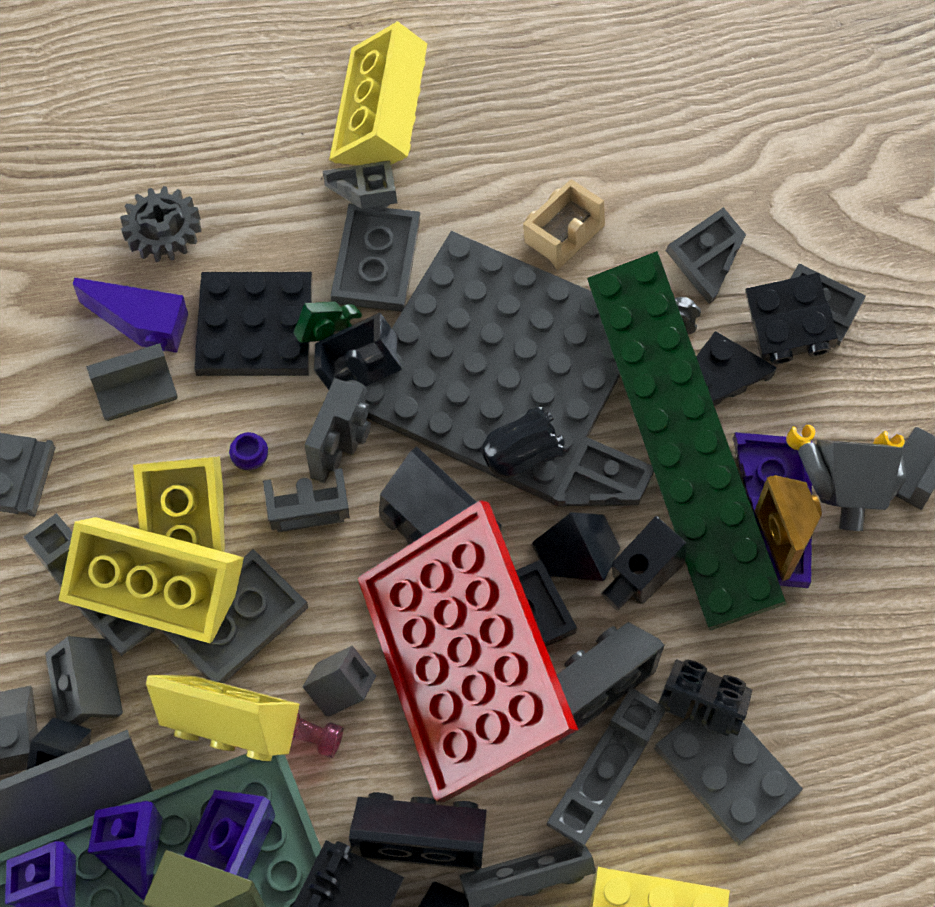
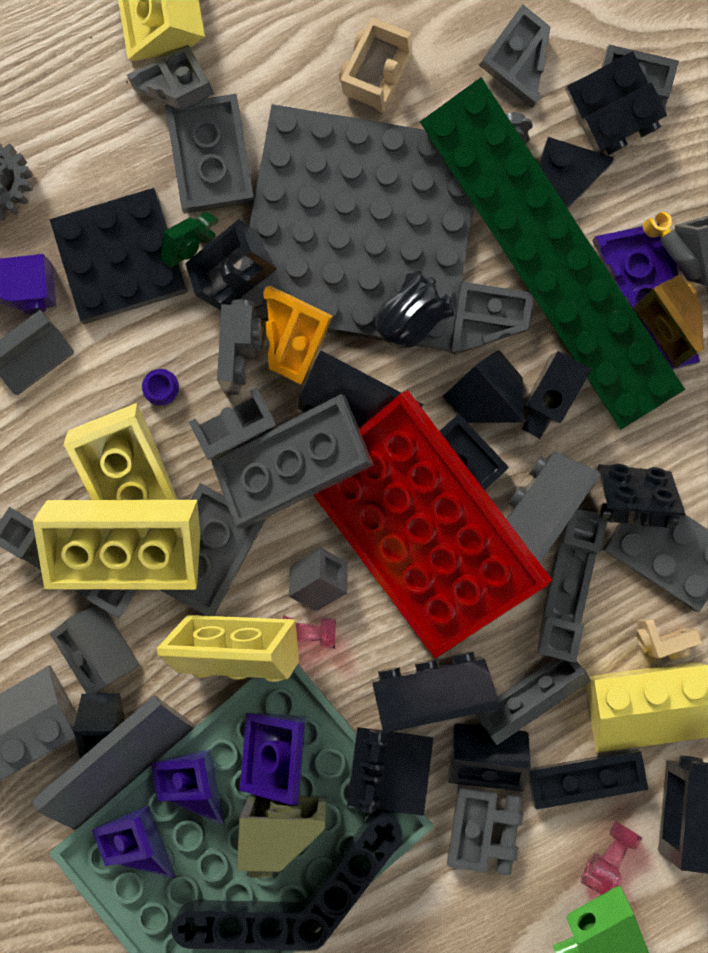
camera: 25 degrees left, 20 degrees up
(351, 549) = (292, 462): none -> dark grey tile
(397, 432) = (293, 334): none -> light orange wing
(702, 866) = (675, 644): none -> tan bracket

